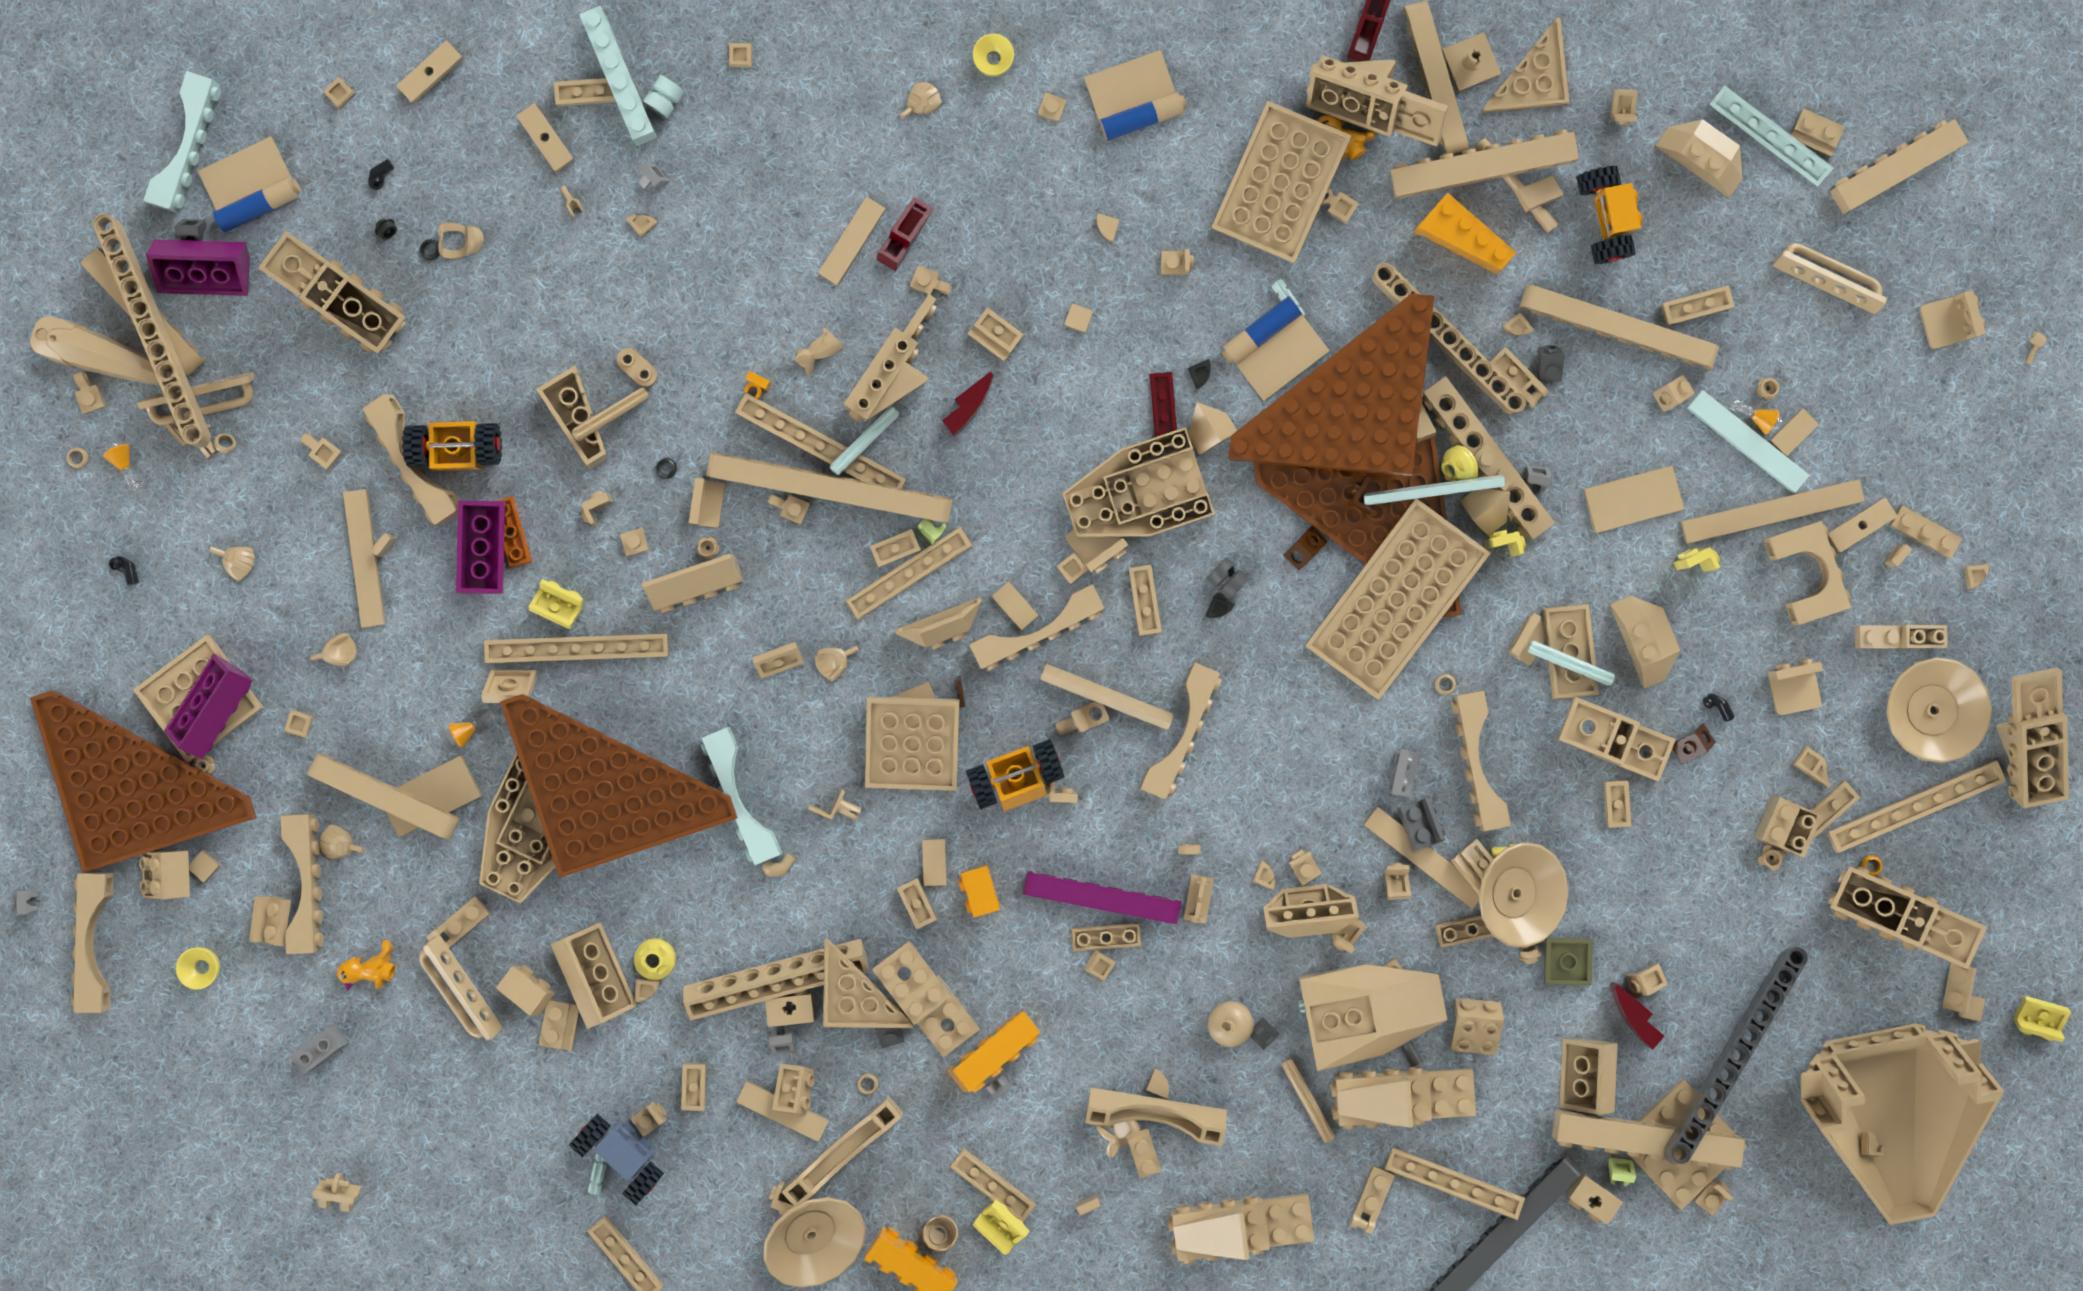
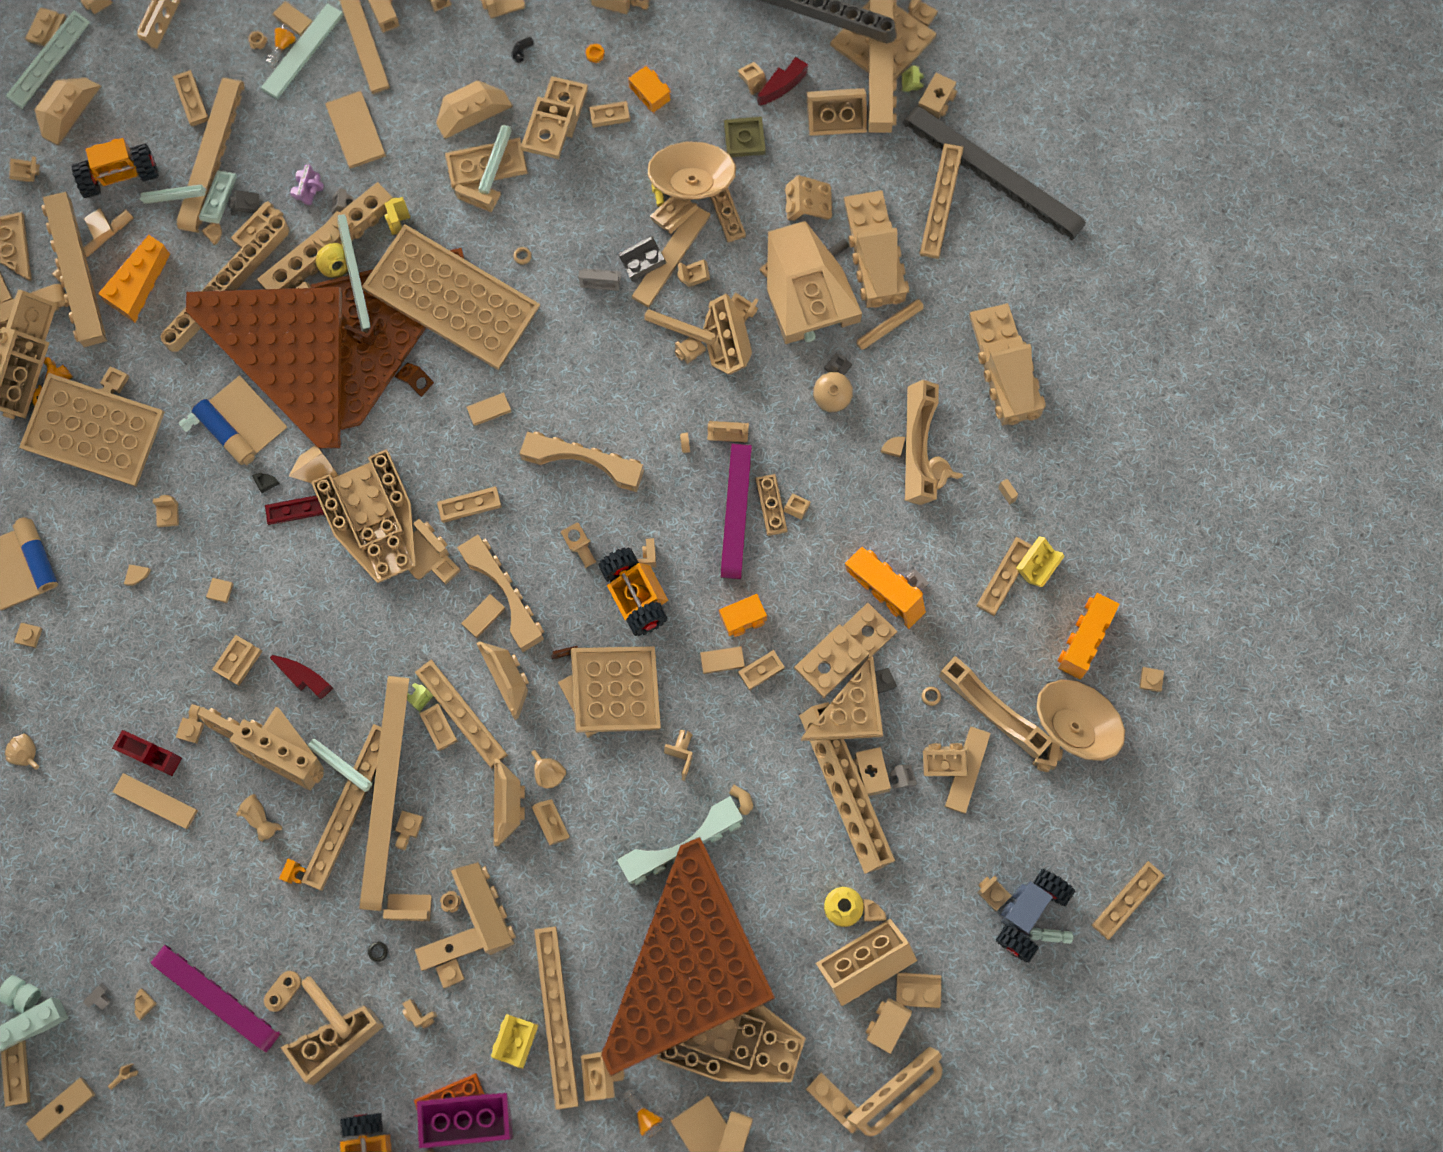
camera: 90 degrees left, 15 degrees down
(636, 297) = (215, 999): none -> magenta beam
(656, 529) = (437, 954): none -> tan tile
(693, 1086) = (957, 854): tan plate -> none
(802, 616) = (507, 802): none -> tan wedge
(937, 1240) = (1058, 607): tan hair -> none
(1107, 696) = (557, 526): tan tile -> none
(1143, 1153) = (956, 450): tan plate -> none
(1218, 607) = (471, 443): pearl dark grey tile -> none
(1227, 578) = (445, 435): dark grey wheel -> none
(1257, 630) = (488, 409): none -> tan tile
(1264, 876) = (702, 380): tan tile -> none
(1330, 858) = (680, 327): none -> tan axle
(1372, 1199) = (966, 265): tan plate -> none
(1471, 714) = (623, 208): tan arch -> none
(1487, 508) = (368, 236): tan slope -> none
(1530, 956) = (742, 166): tan plate -> none
(1561, 333) = (218, 197): none -> light aqua tile
(1564, 441) = (308, 185): none -> lavender hips
(1567, 281) = (173, 194): none -> light aqua axle
(1644, 855) = (649, 88): none -> light orange brick
(1673, 393) = (265, 108): tan bracket -> none
(1693, 745) = (556, 64): bracket -> none
(1703, 793) = (595, 53): none -> light orange tile
(1705, 557) = (399, 71): light yellow bracket -> none

